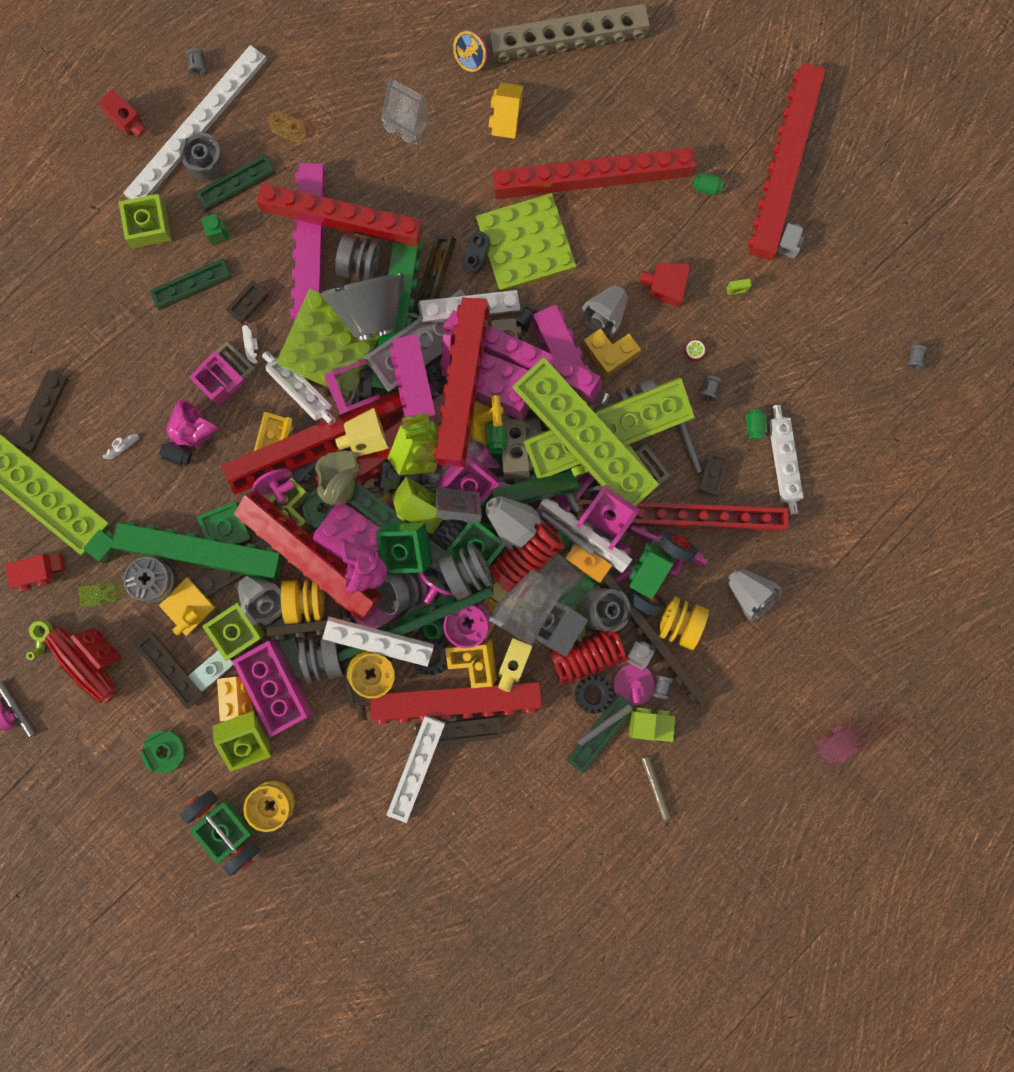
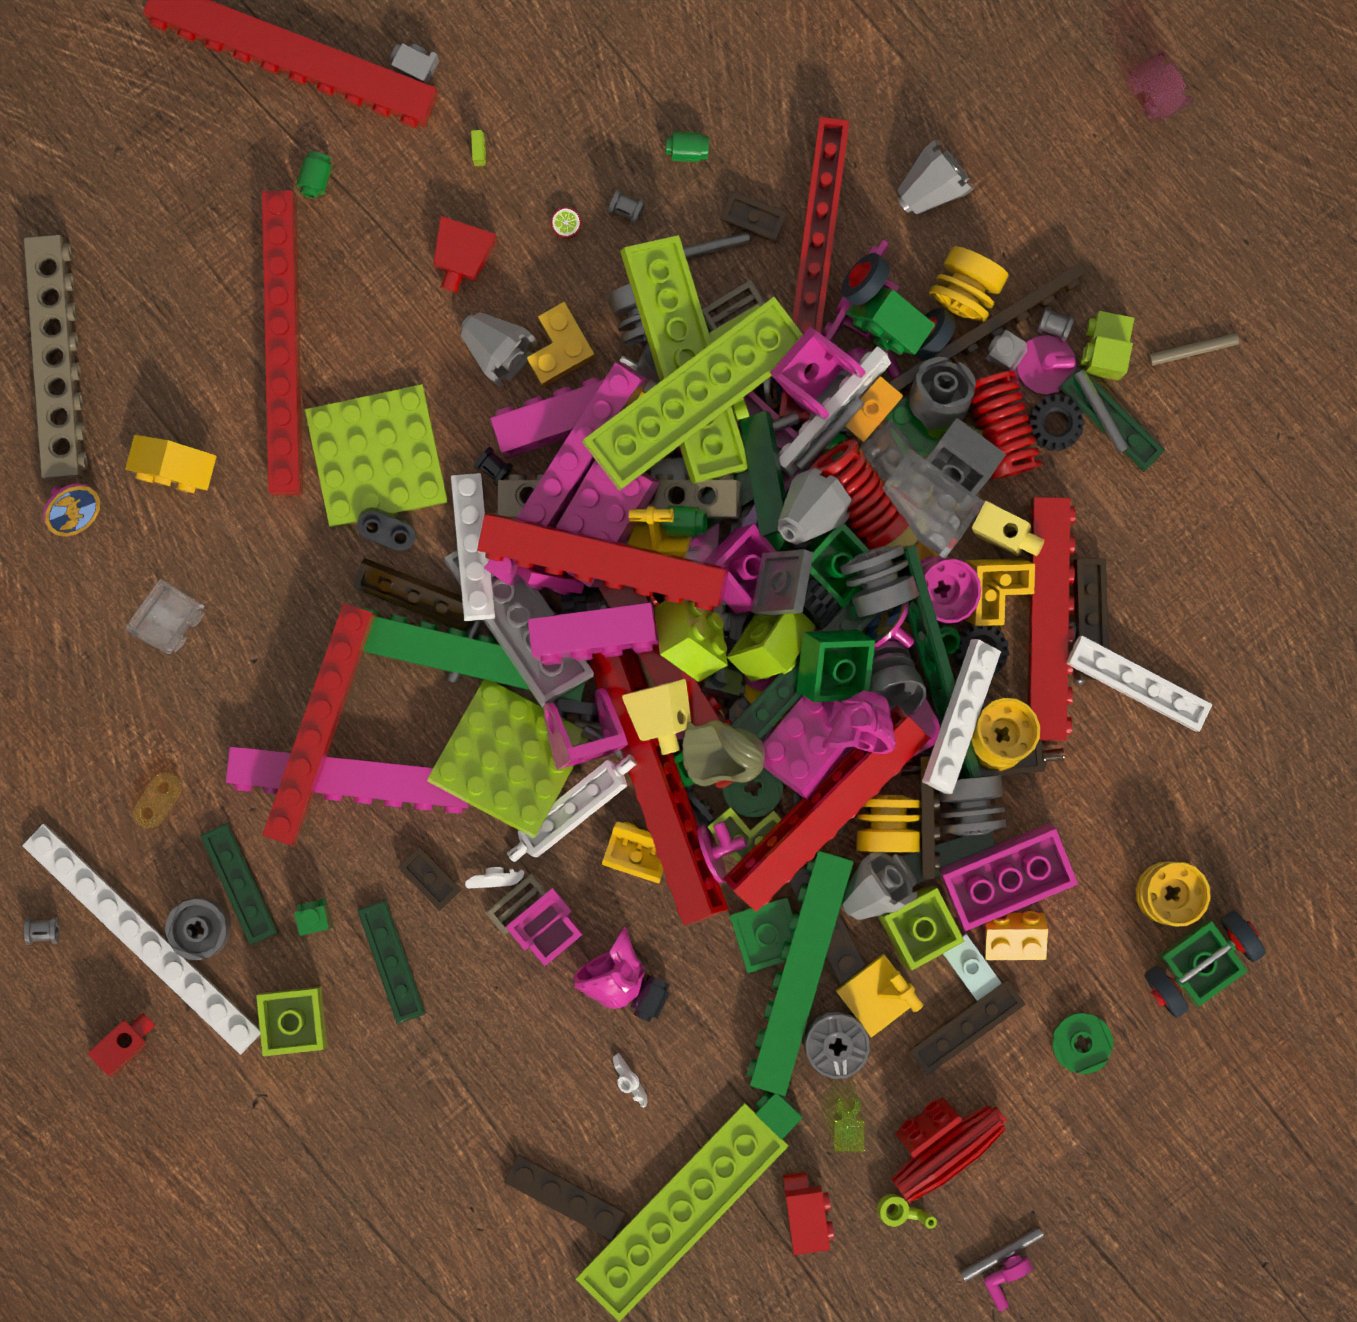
camera: 80 degrees left, 5 degrees up
(241, 741) = (1079, 926): lime brick -> none
(353, 257) = (383, 705): flat silver wheel -> none
(368, 305) = (464, 691): dark grey cone -> none
(419, 426) = (668, 627): clear neon green bracket -> none
(785, 460) = (742, 110): white plate -> none

